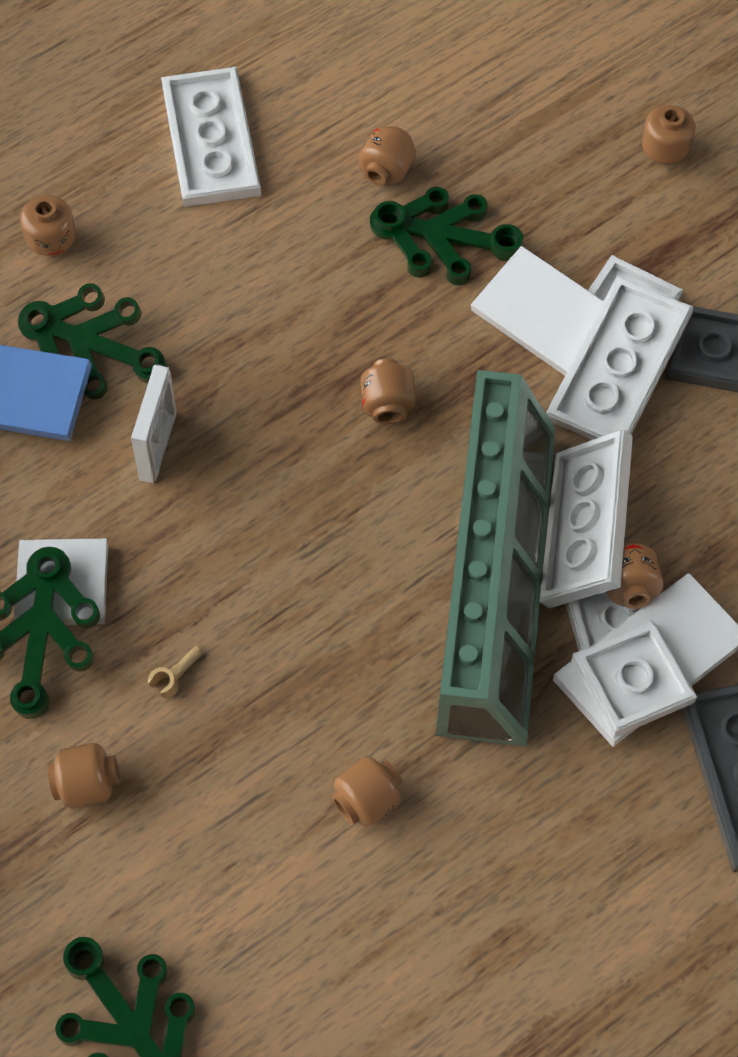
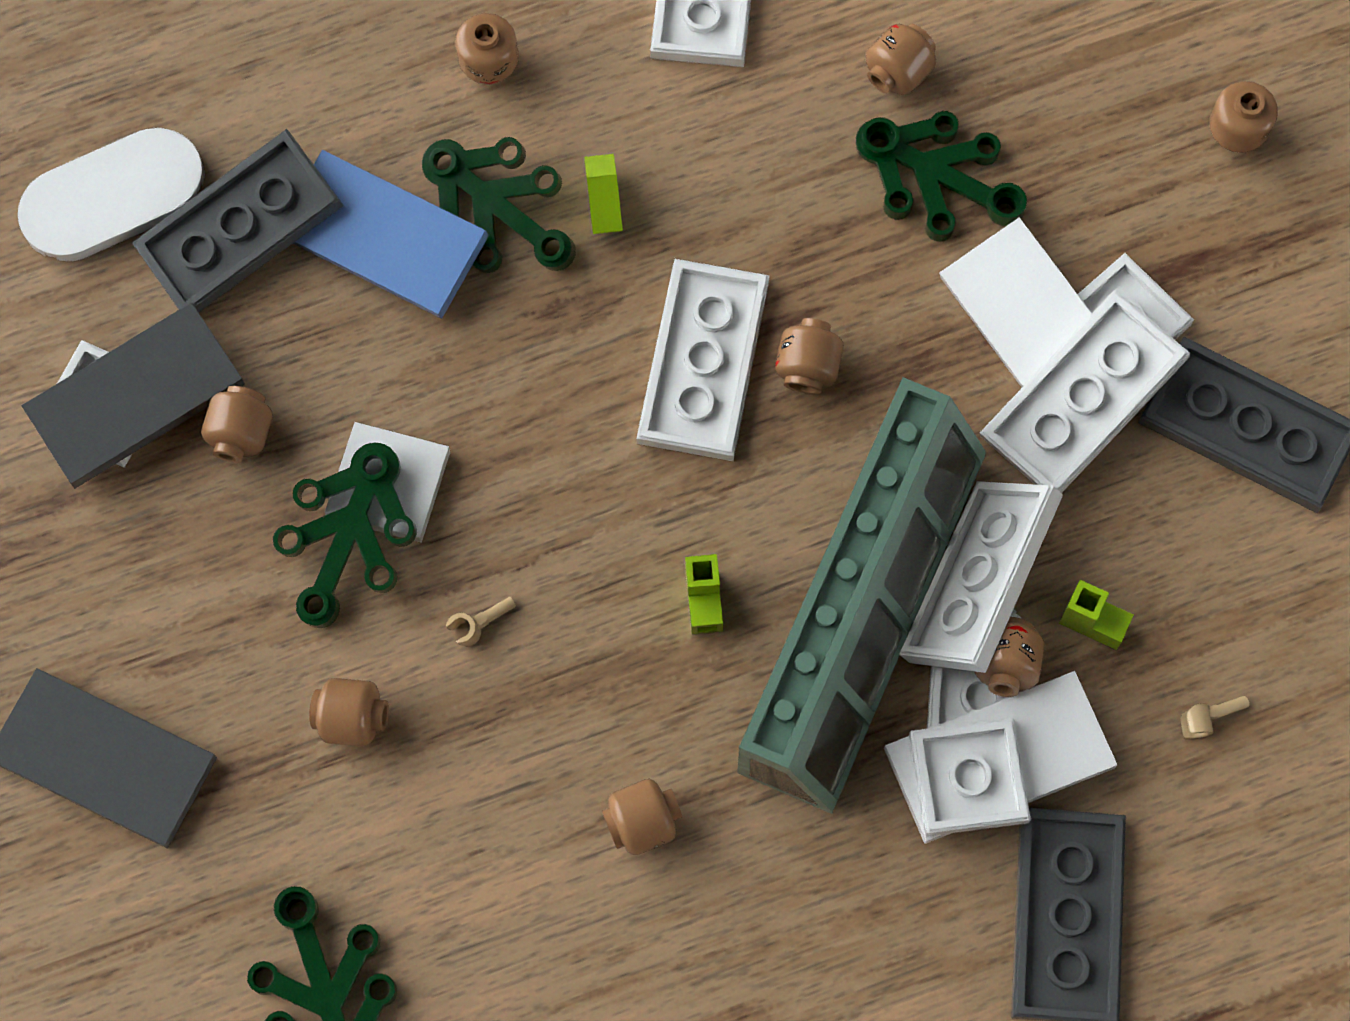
camera: 20 degrees right, 10 degrees up
(154, 424) = (534, 330): white tile -> none
(179, 311) = (603, 193): none -> lime piece
(300, 420) = (703, 360): none -> white tile
(359, 596) = (704, 594): none -> lime piece
(685, 530) = (1094, 617): none -> lime piece

